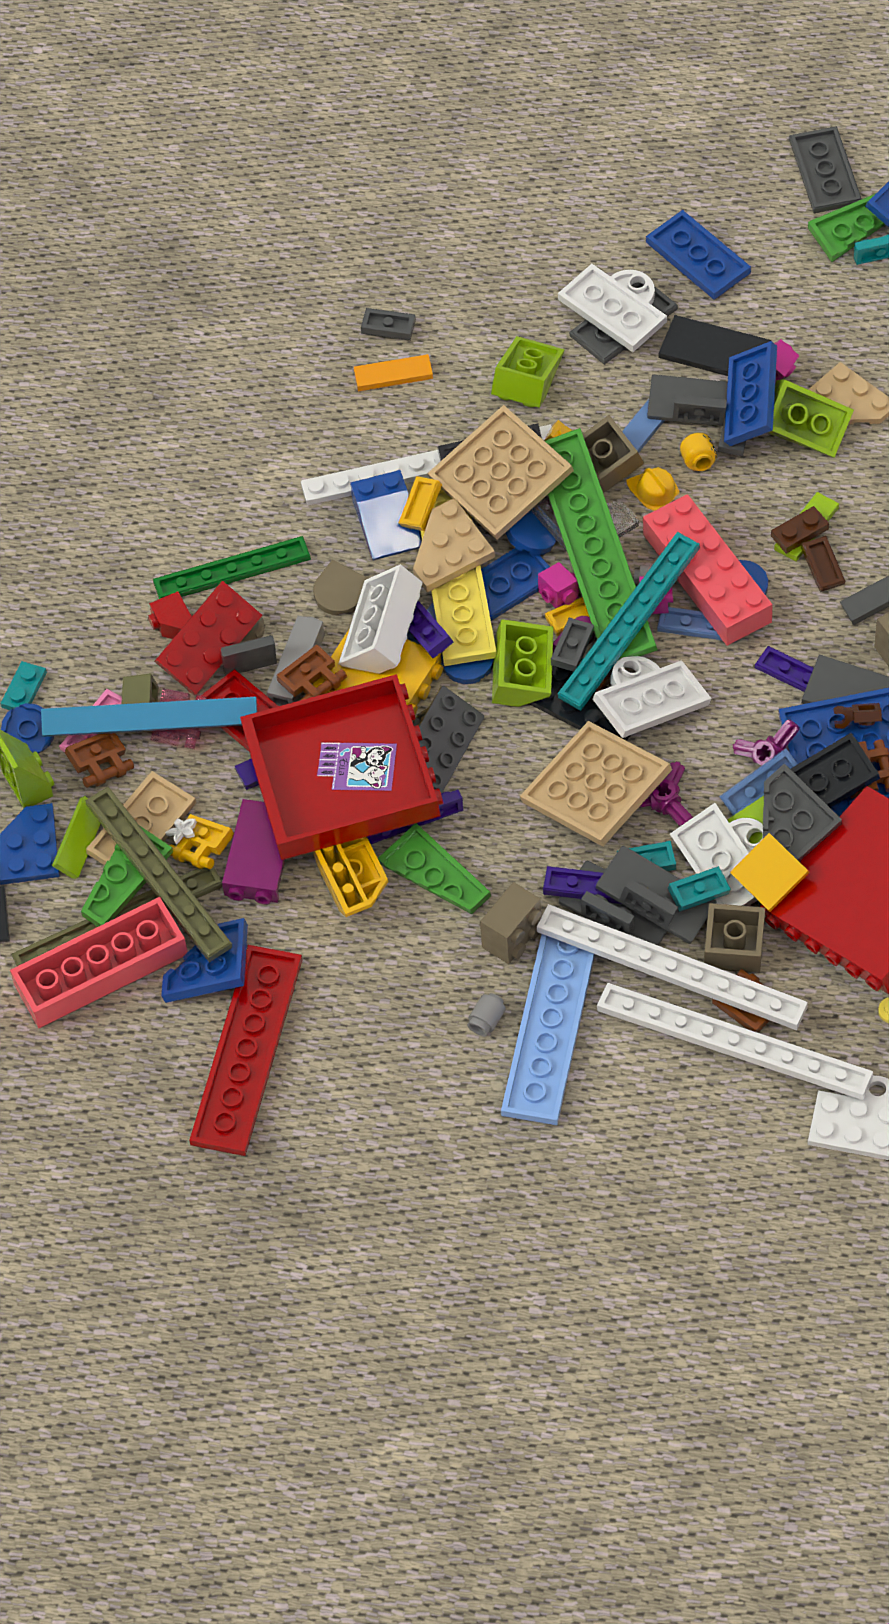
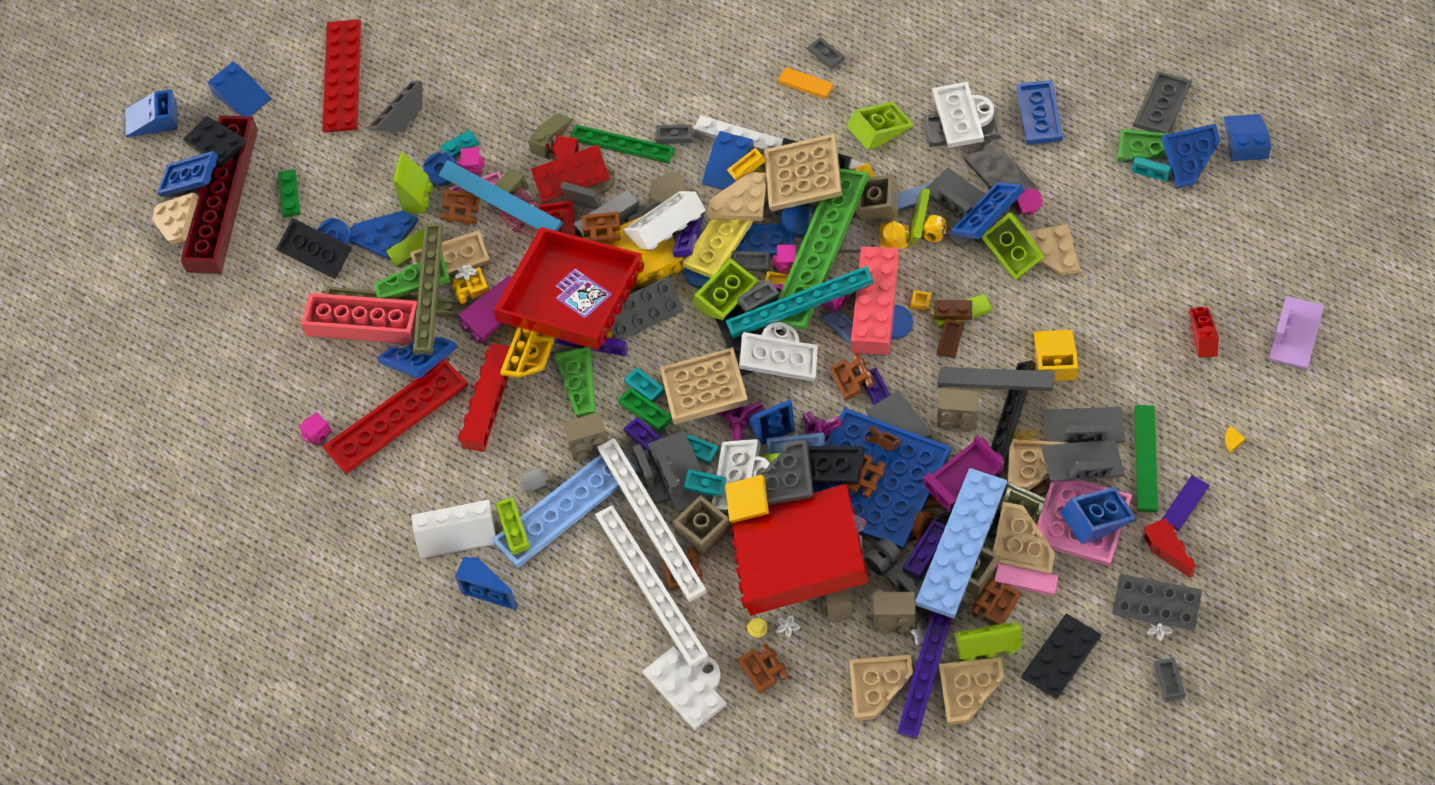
camera: 40 degrees right, 0 degrees up
(61, 693) = (472, 160): none -> dark pink brick
(131, 610) = (546, 134): none -> olive slope
(159, 1127) = (314, 429): none -> dark pink brick
(288, 520) = (674, 134): none -> dark grey plate
(336, 629) = (642, 210): none -> dark grey plate
(342, 956) = (486, 400): none -> red brick
(444, 1129) = (454, 529): none -> white slope
(513, 1079) = (512, 526): none -> lime tile
(519, 828) = (644, 385): none -> teal plate
(520, 609) = (752, 260): none -> dark grey plate
(544, 853) = (645, 410): none -> green plate
(544, 1162) = (482, 583): none -> blue slope
(669, 448) = (919, 216): none -> lime tile
(712, 772) = (773, 422): none -> blue slope
(748, 678) = (846, 379): none -> dark orange plate
(750, 542) = (920, 300): none -> yellow tile

